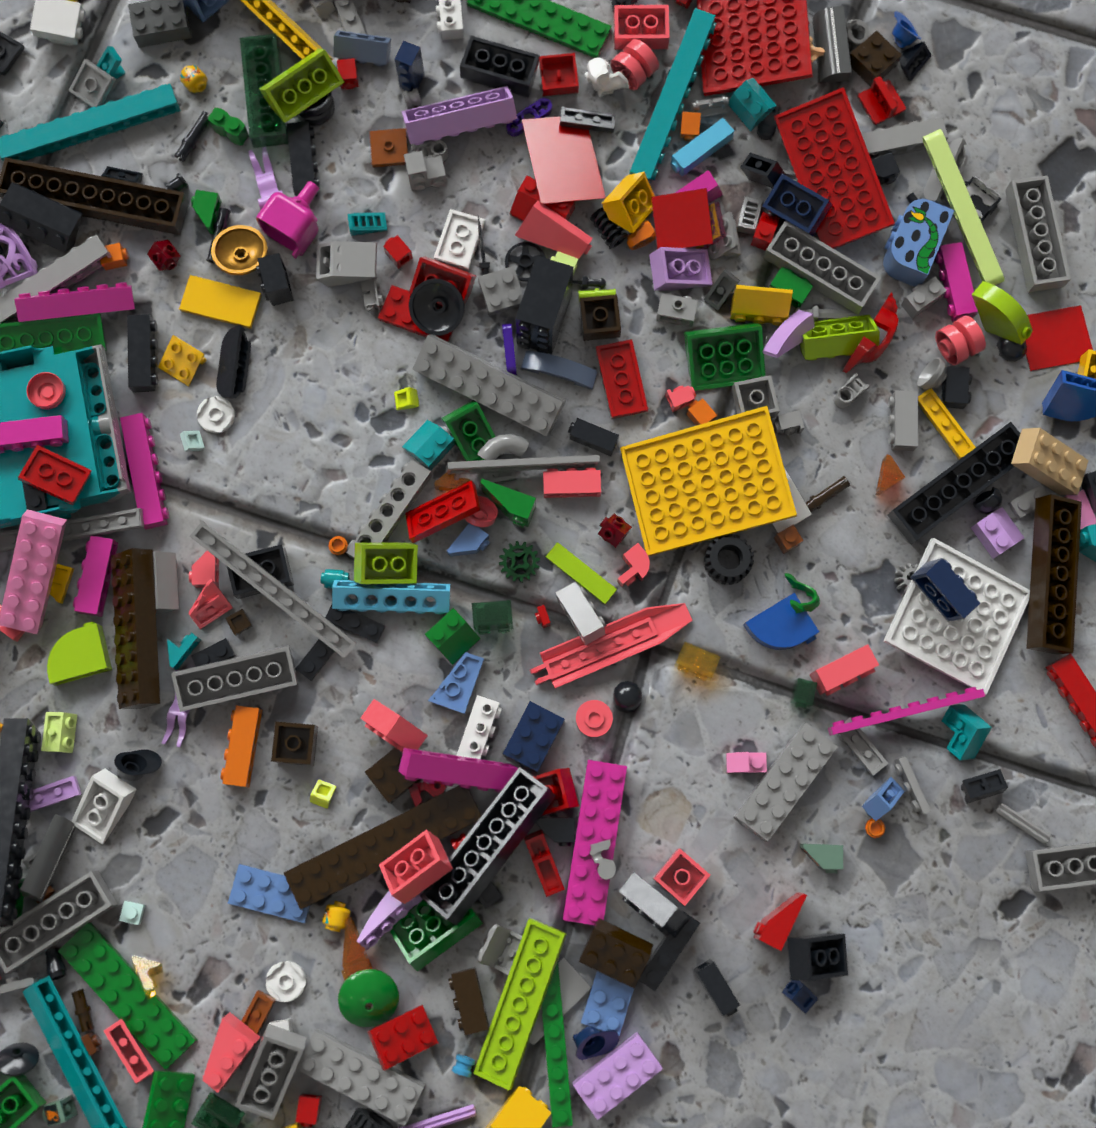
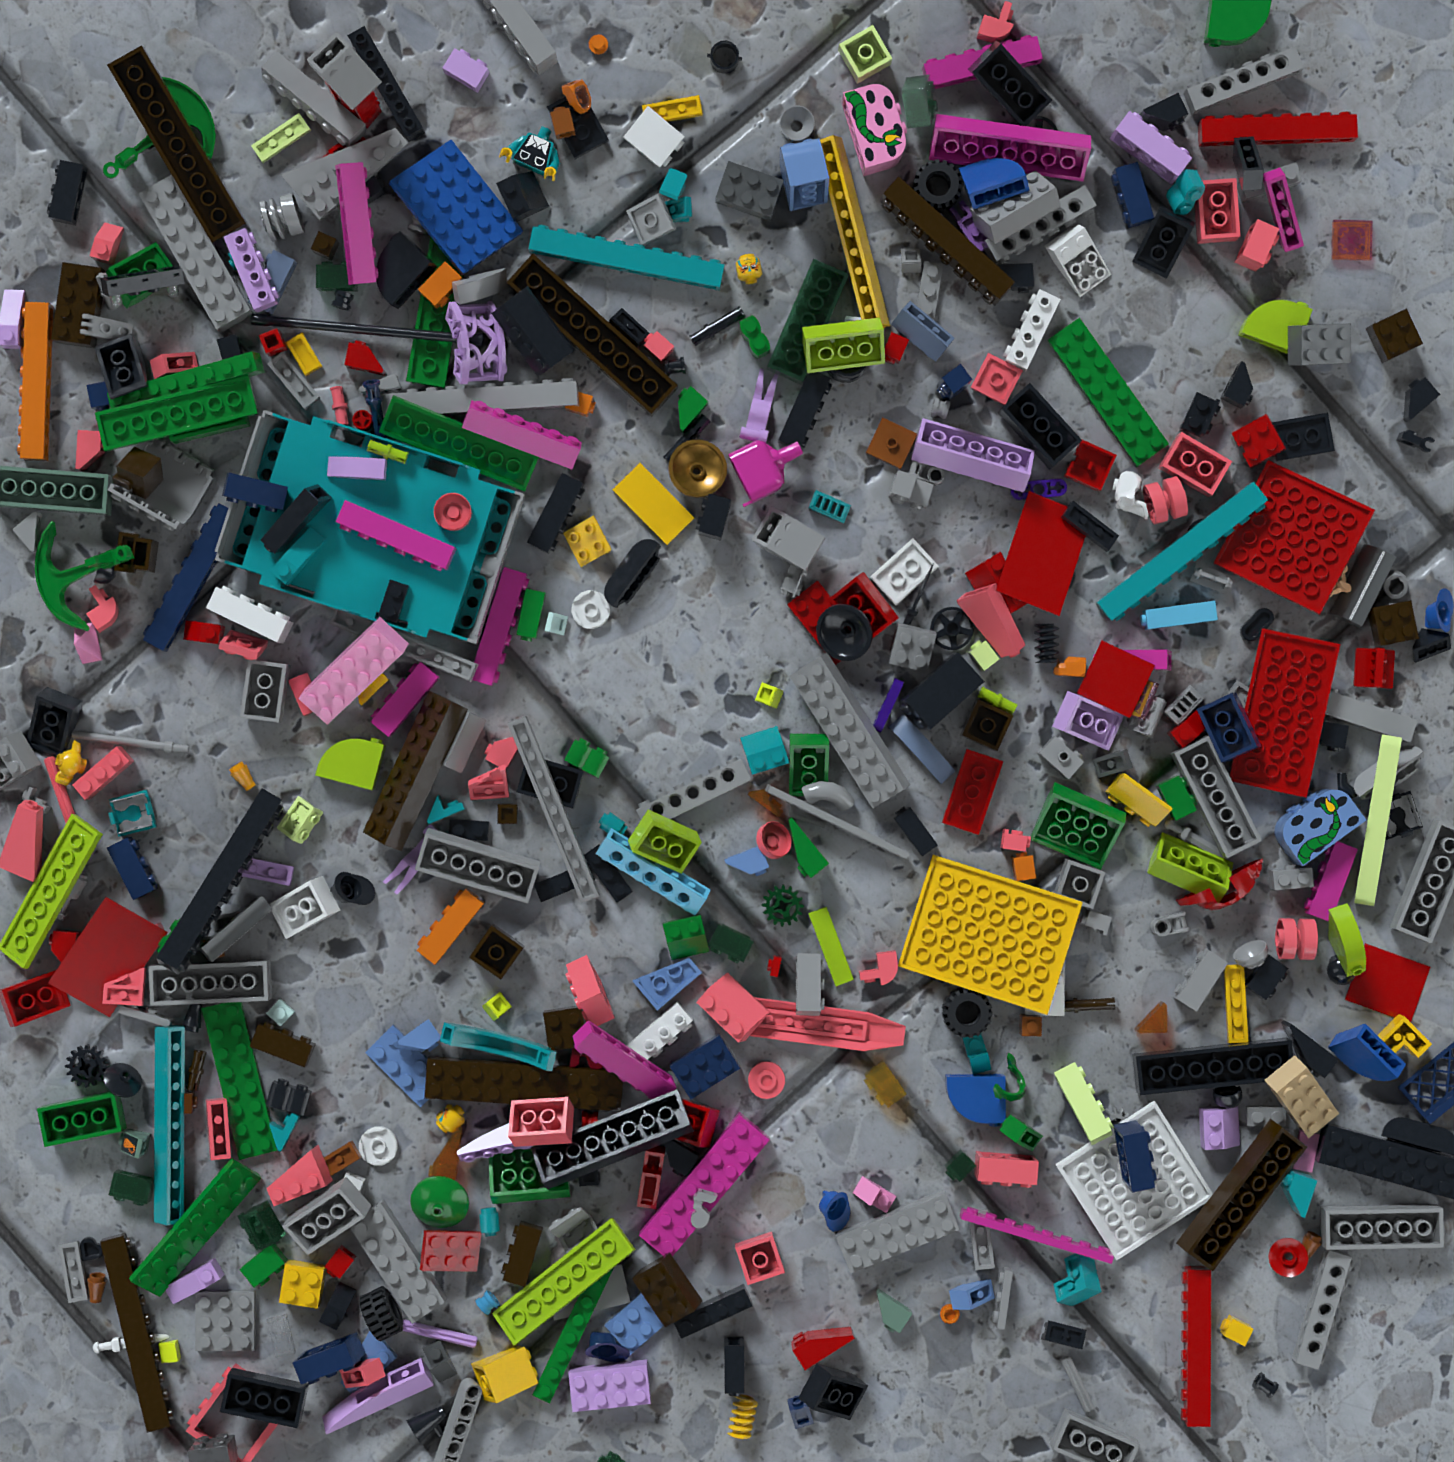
camera: 30 degrees right, 10 degrees up
(55, 475) = (420, 598): red plate -> none
(92, 44) = (673, 184): none -> teal slope
(145, 971) = (265, 1068): clear yellow slope -> none
(148, 939) = (283, 1044): none -> dark brown brick
(153, 175) = (658, 346): none -> coral brick
(164, 255) = (626, 432): dark red brick -> none
(166, 445) = (531, 615): none -> green brick
(179, 985) = (289, 1097): none -> black brick
(193, 1023) = (282, 1134): none -> teal slope
(268, 860) = (420, 1038): none -> medium blue slope
(276, 534) = (587, 758): none -> green brick
(338, 545) = (632, 795): orange plate -> none
(340, 824) = (498, 1043): none -> teal arch
(397, 251) = (841, 551): red brick -> none
(423, 989) = (489, 1221): none -> teal brick
(442, 511) = (740, 824): red plate -> none
(443, 52) = (996, 379): none -> coral plate
(527, 670) = (733, 1007): none -> coral slope
(572, 483) = (870, 861): coral brick -> none
(585, 282) = (994, 682): black sword -> none
(614, 529) = (882, 926): dark red brick -> none
(627, 696) = (806, 1078): black hair -> none
(630, 202) = (1079, 633): yellow slope -> none
(653, 906) = (721, 1270): brick -> none
(690, 125) = (1181, 589): orange brick -> none
(720, 794) = (835, 1209): none -> blue piece
(751, 103) = (1250, 604): teal slope -> none
(752, 1031) = (744, 1417): none -> yellow piece
(758, 590) = (977, 1054): none -> teal slope
(762, 170) = (1219, 674): black brick -> none
(789, 334) = (1146, 842): lavender slope -> none
(837, 631) = (1020, 1132): none -> green brick
(874, 575) = (1083, 1103): none -> yellowish green brick
(1028, 418) = (1309, 1052): none -> black slope

